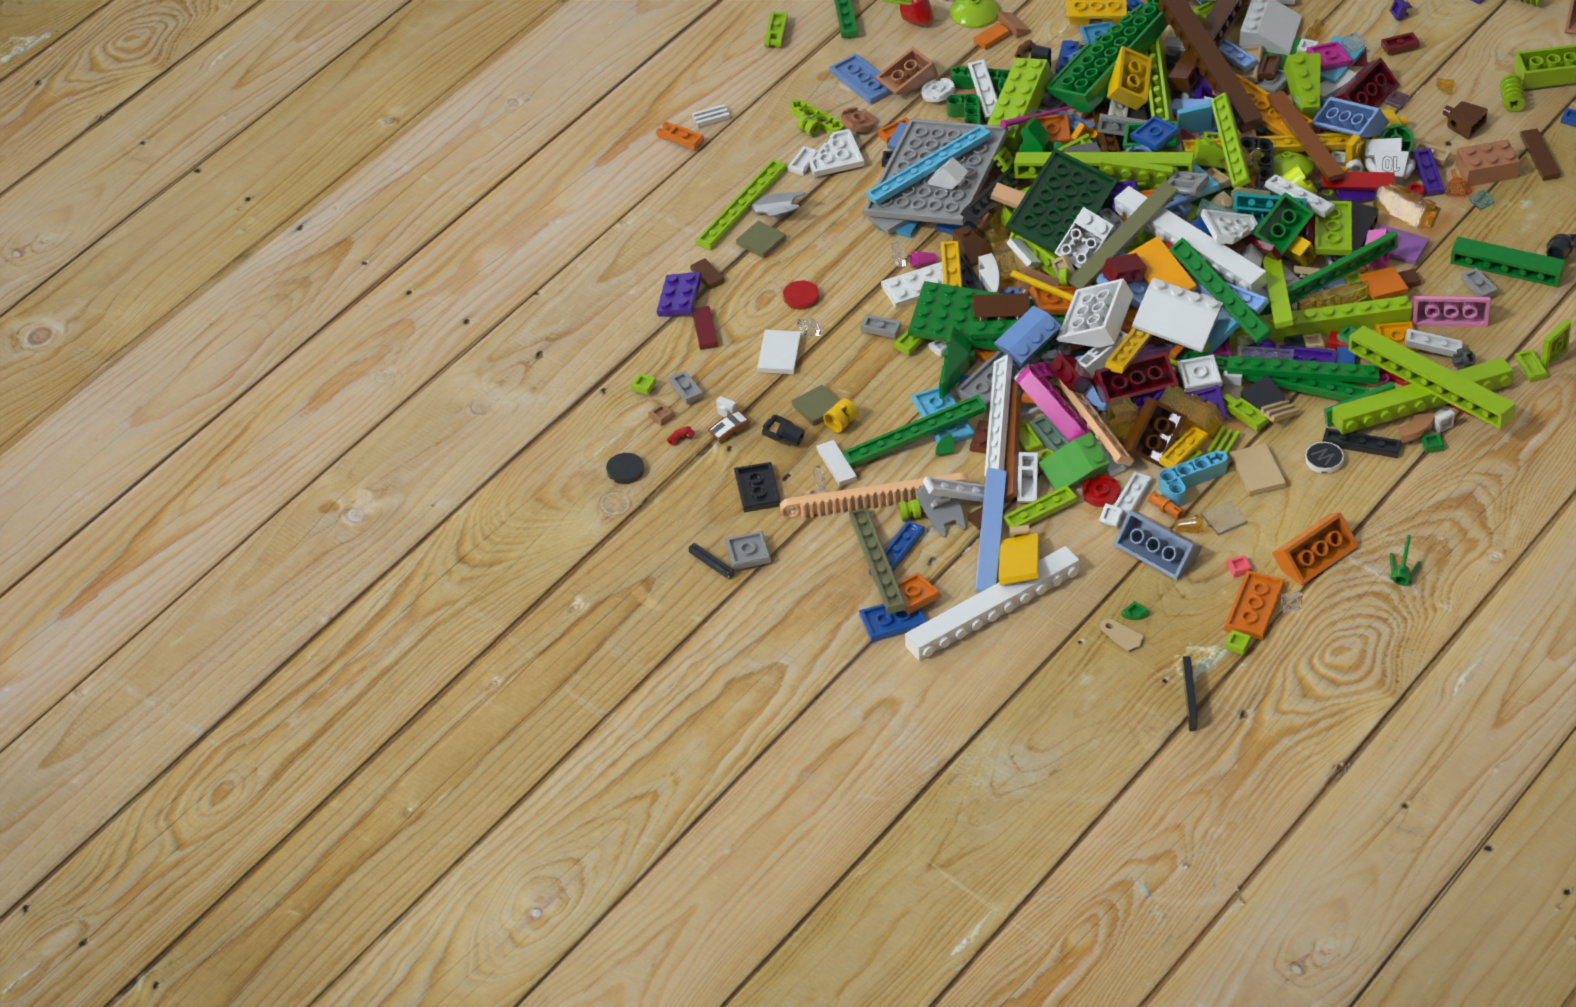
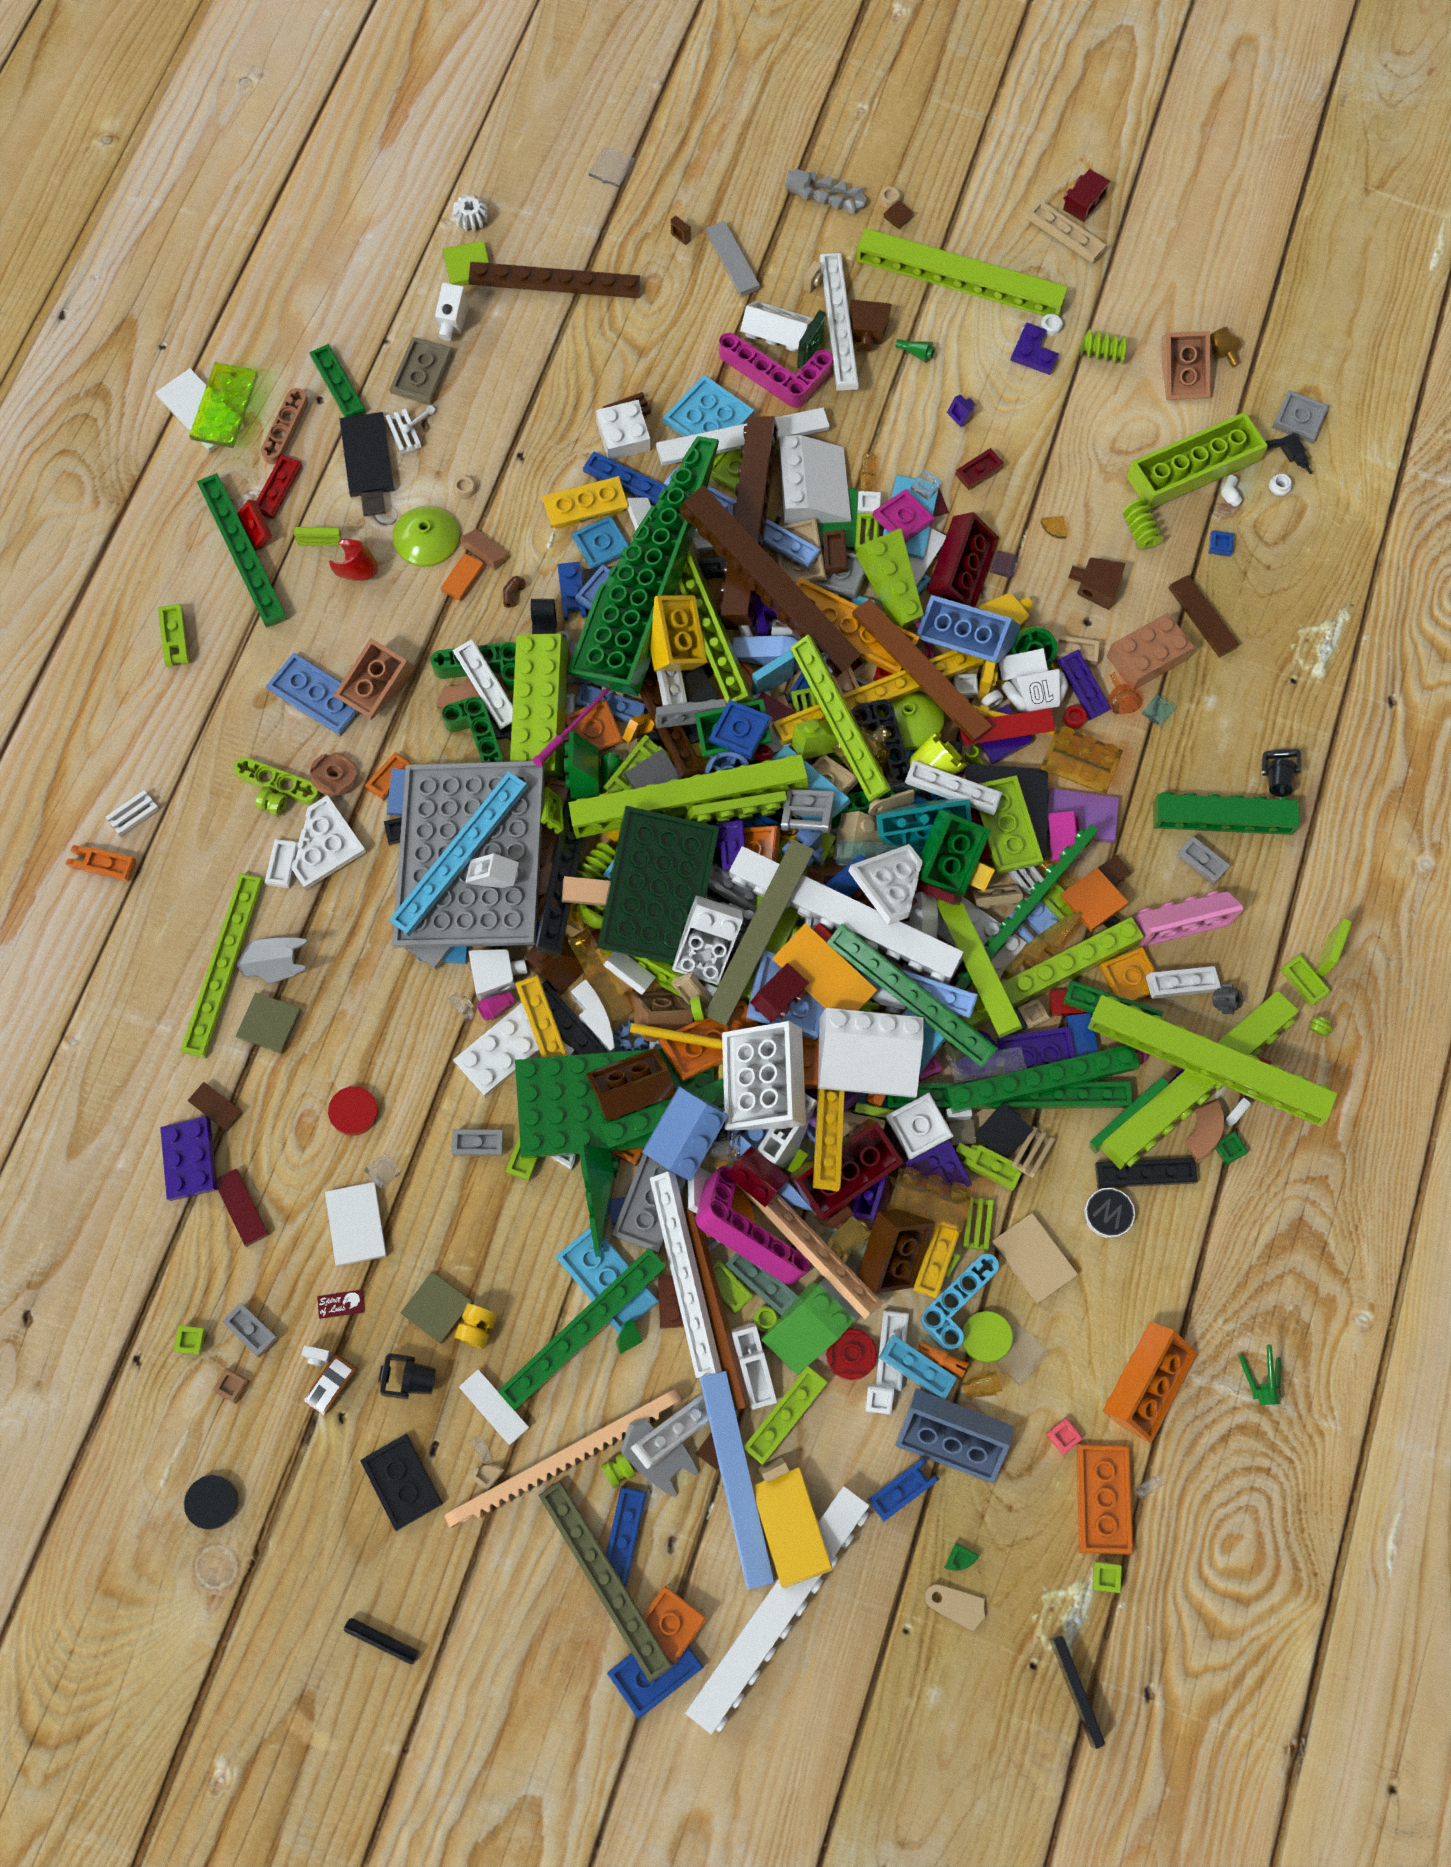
camera: 25 degrees left, 25 degrees up
(678, 434) = (267, 1415): red arm -> none
(747, 550) = (425, 1609): light grey plate -> none
(752, 391) = (340, 1304): none -> dark red sticker
(928, 238) = (494, 971): none -> white torso
(937, 90) = (422, 693): white tile -> none
(1107, 565) = (901, 1491): none -> blue hinge
(1144, 500) = (917, 1367): none -> medium azure plate
(1204, 501) = (987, 1337): none -> lime tile
(1530, 389) = (1321, 1026): none -> lime plate

